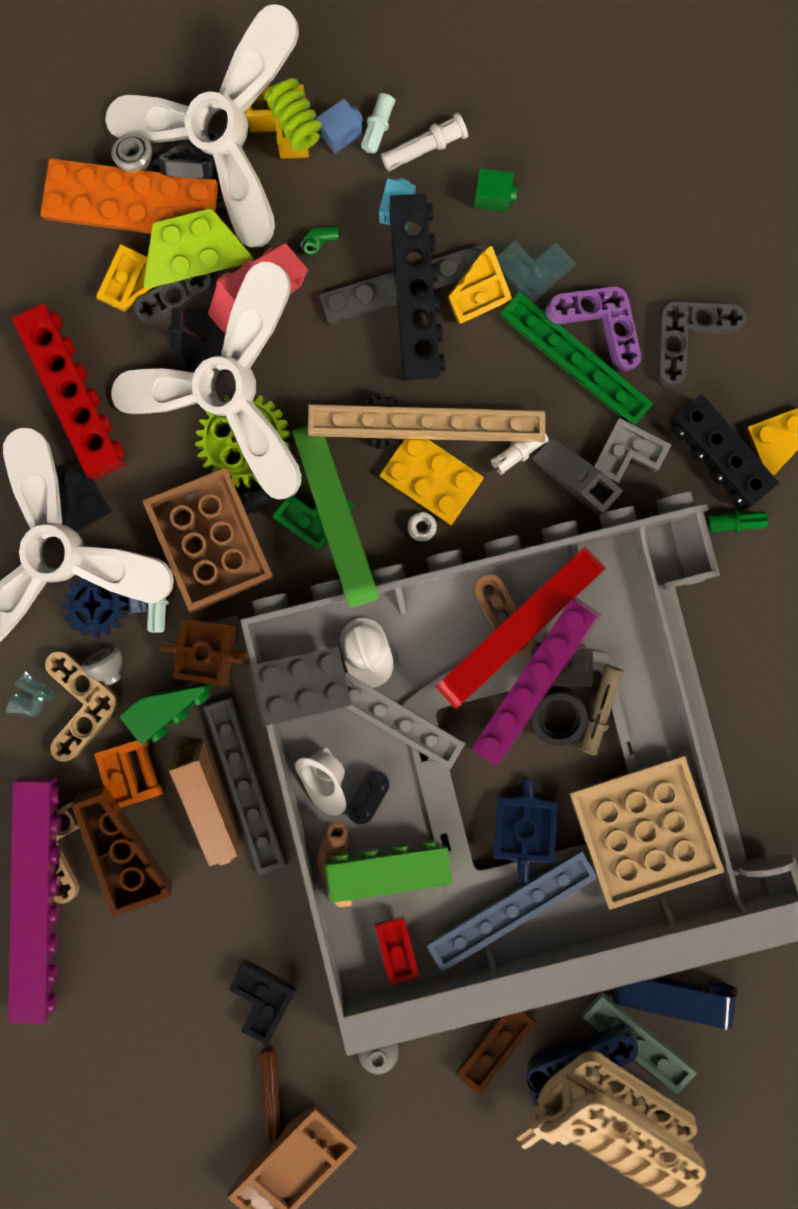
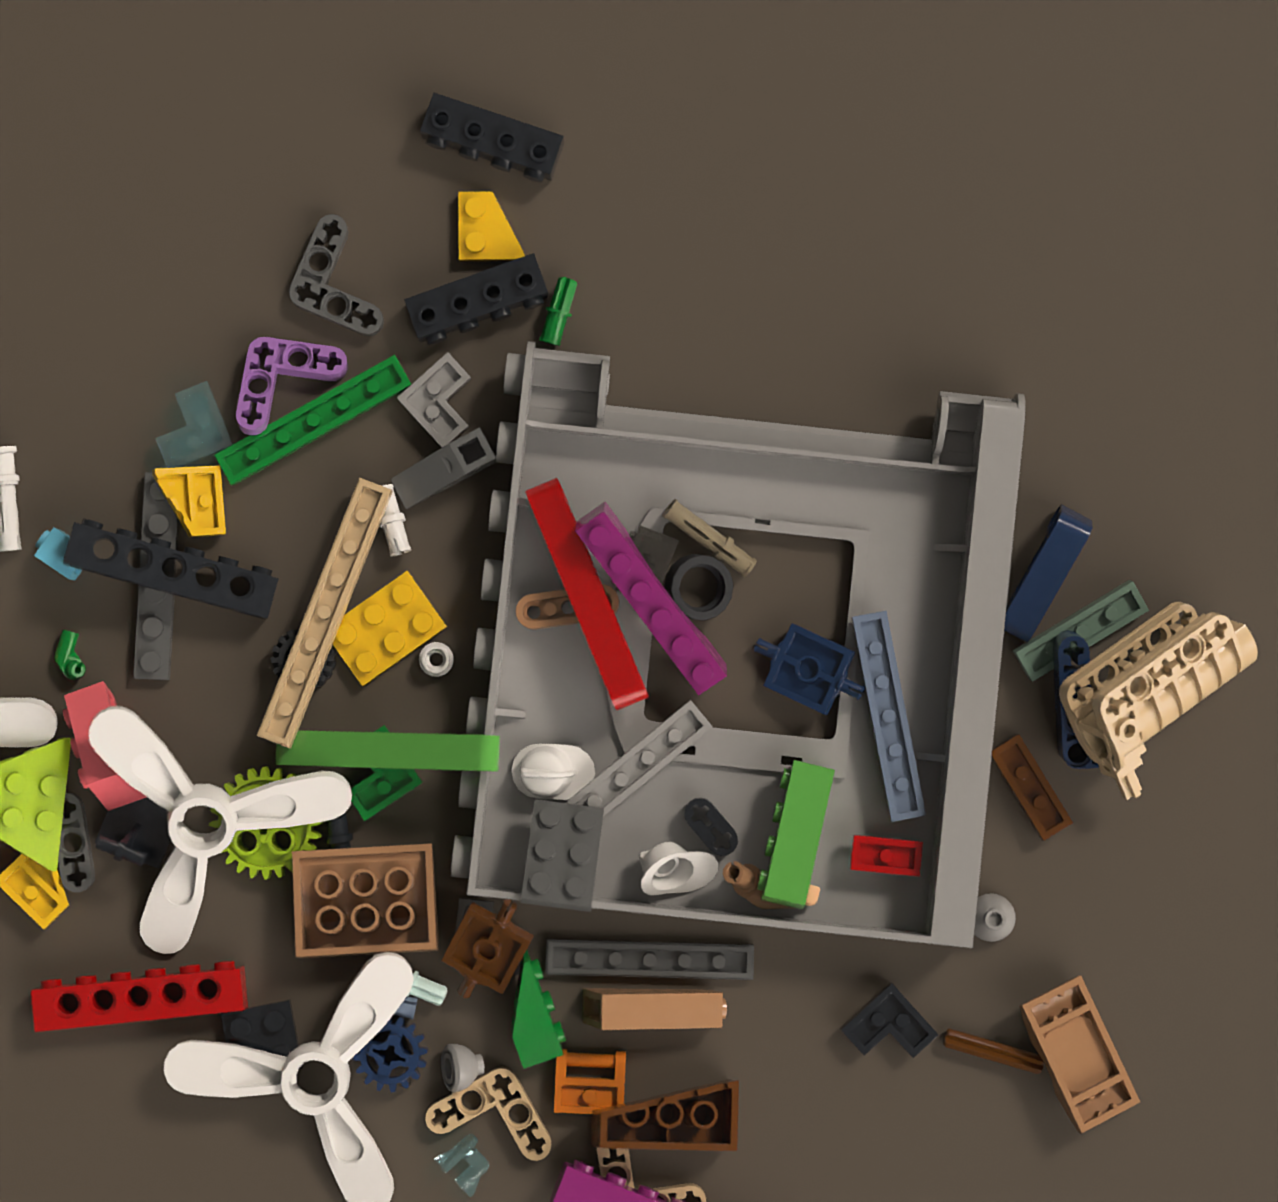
camera: 80 degrees left, 0 degrees up
(495, 190) = (90, 439): green brick -> none
(646, 832) = (857, 540): tan plate -> none

